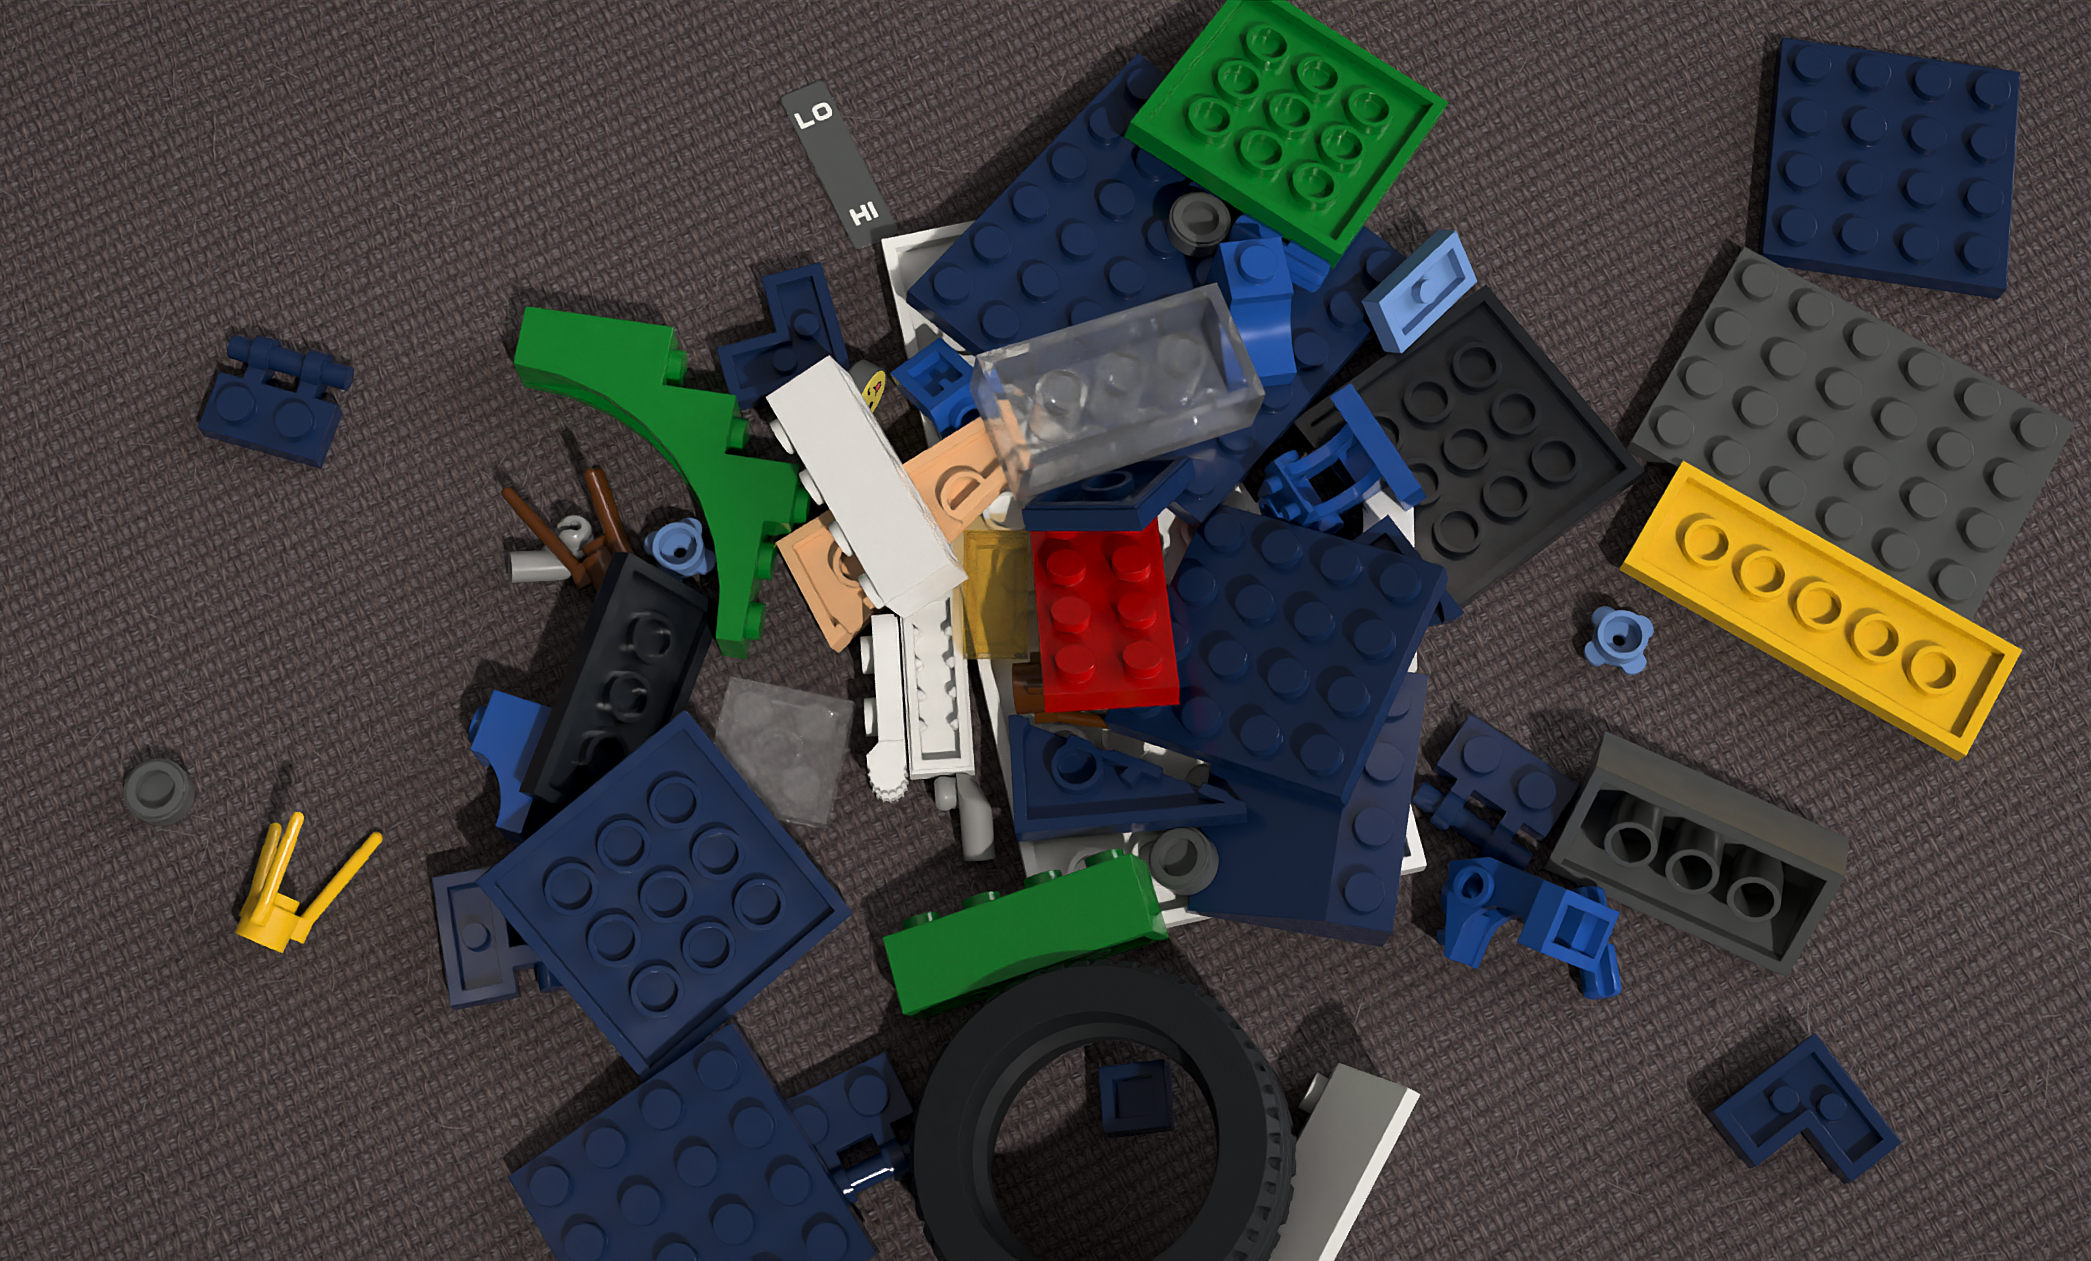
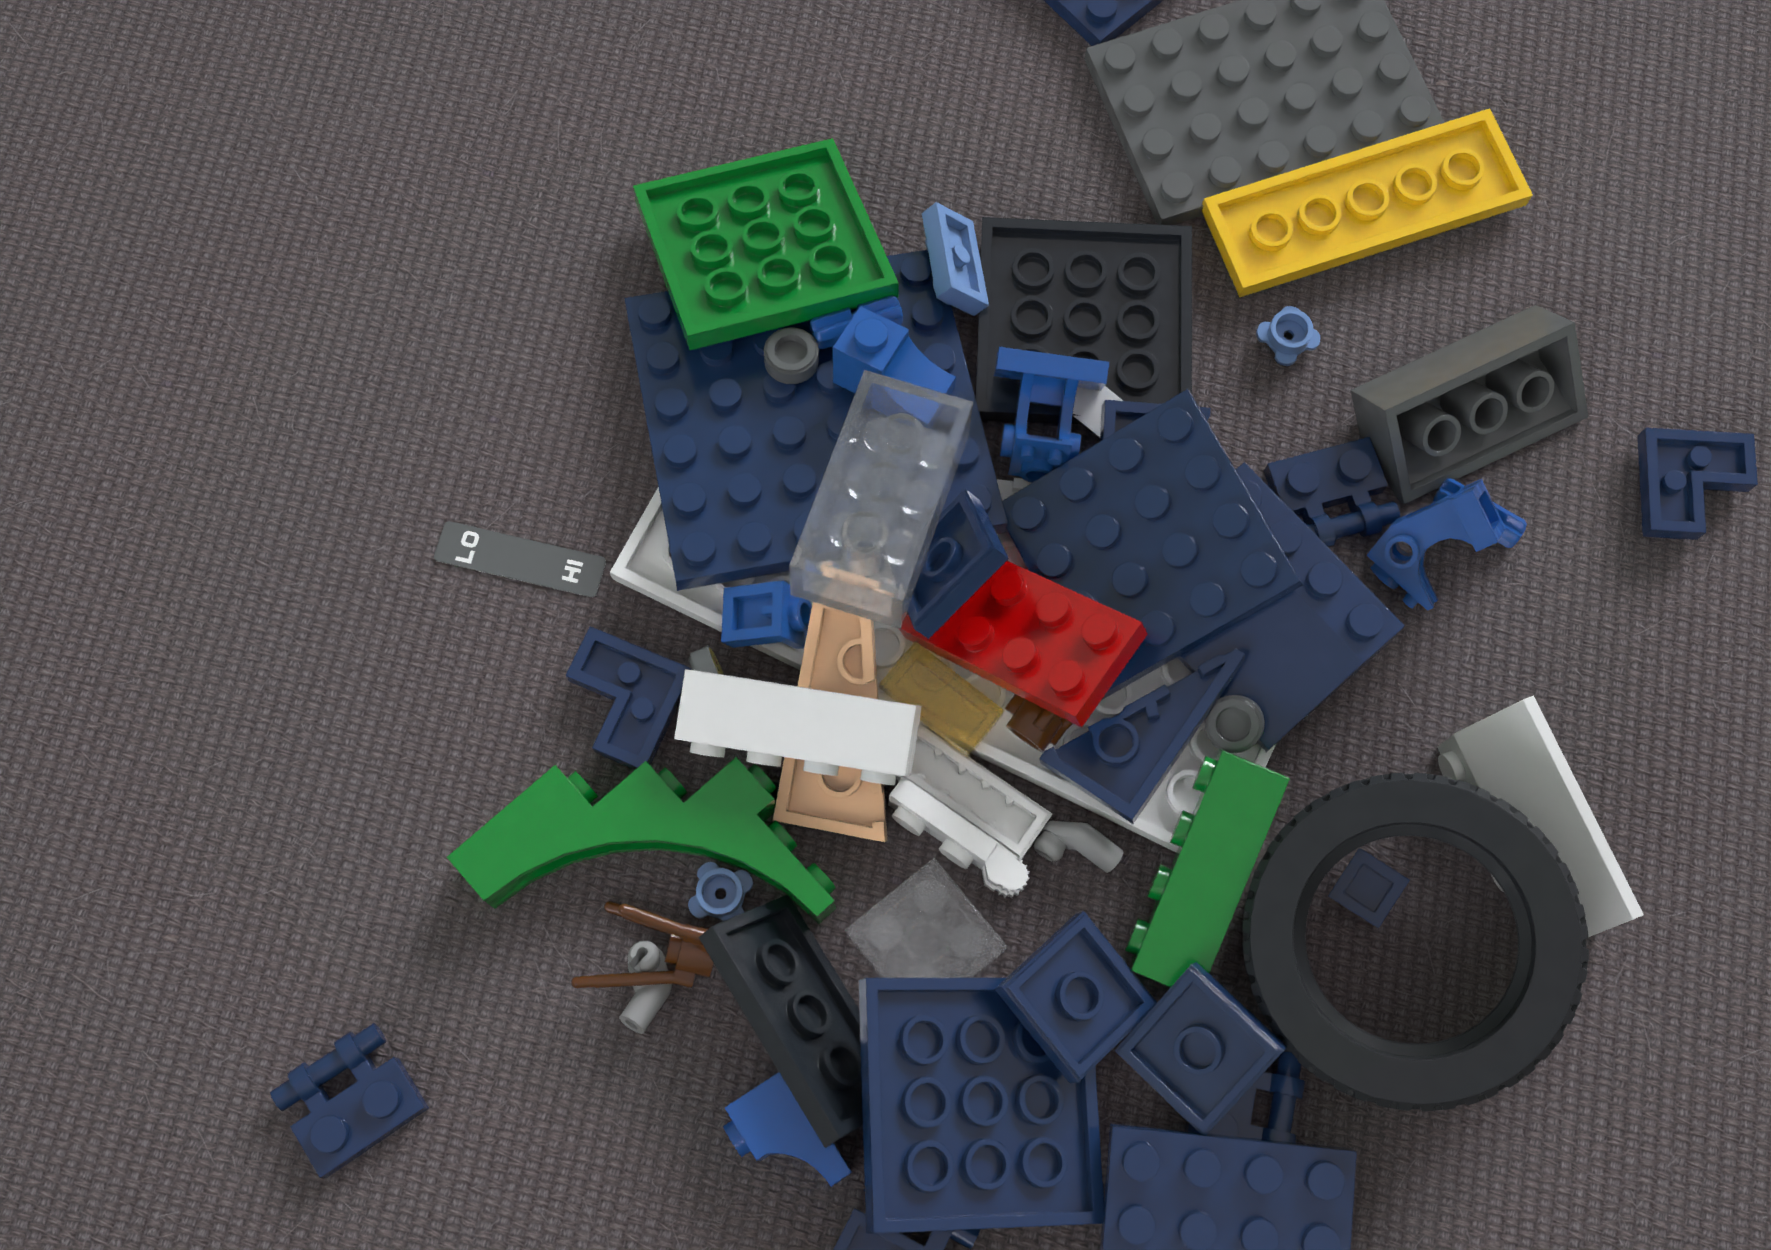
camera: 50 degrees left, 0 degrees up
(820, 907) = (1076, 997): none -> dark blue plate
(858, 1047) = (1200, 1048): none -> dark blue plate

